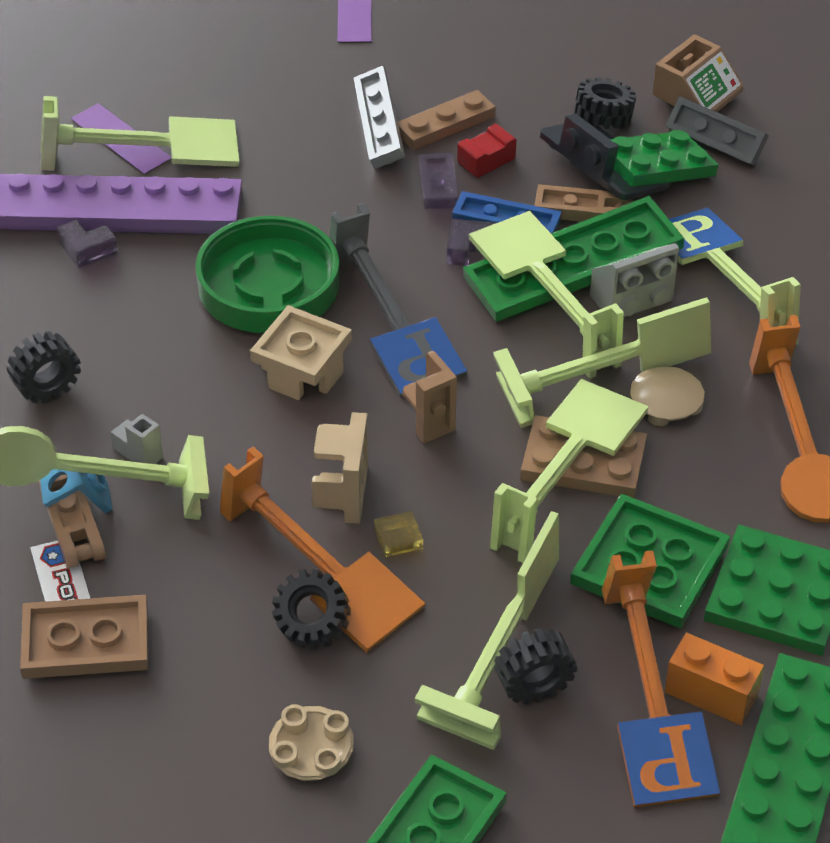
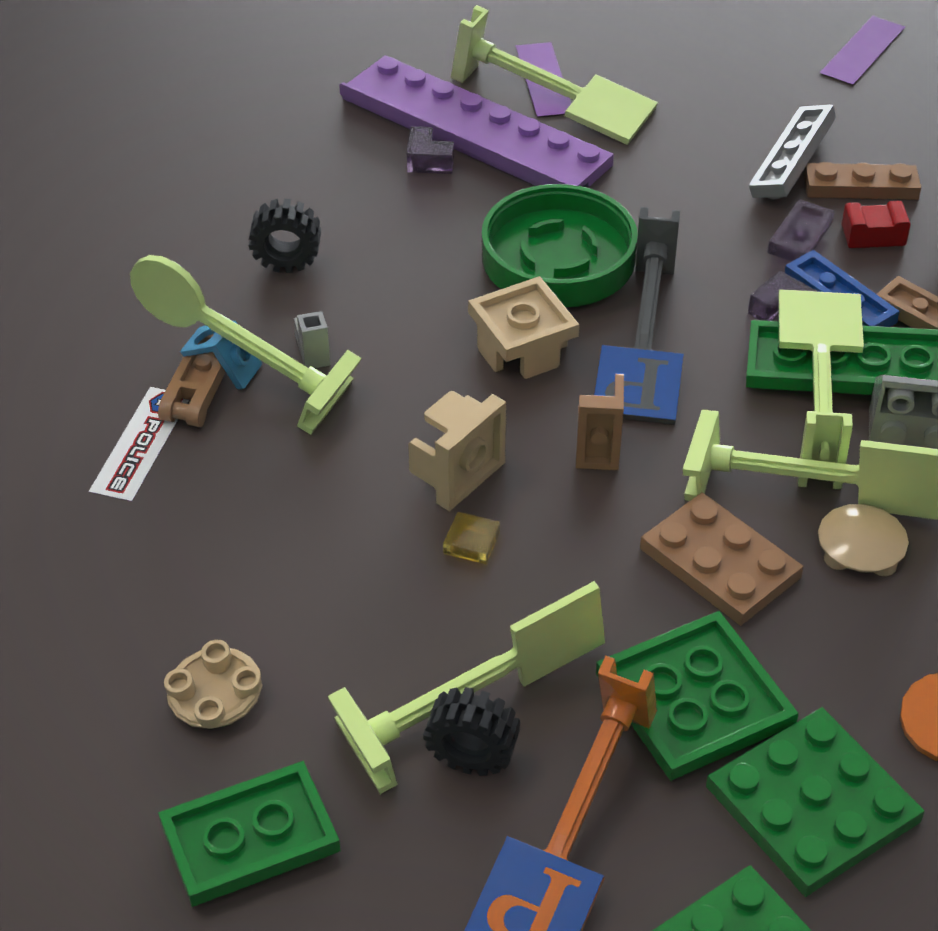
camera: 35 degrees right, 0 degrees up
(84, 636) = (114, 484): medium nougat plate -> none
(322, 630) = (302, 547): black tyre -> none
(374, 593) = (385, 580): orange piece -> none
(589, 418) = (751, 522): yellowish green piece -> none
(714, 678) = (650, 850): orange brick -> none

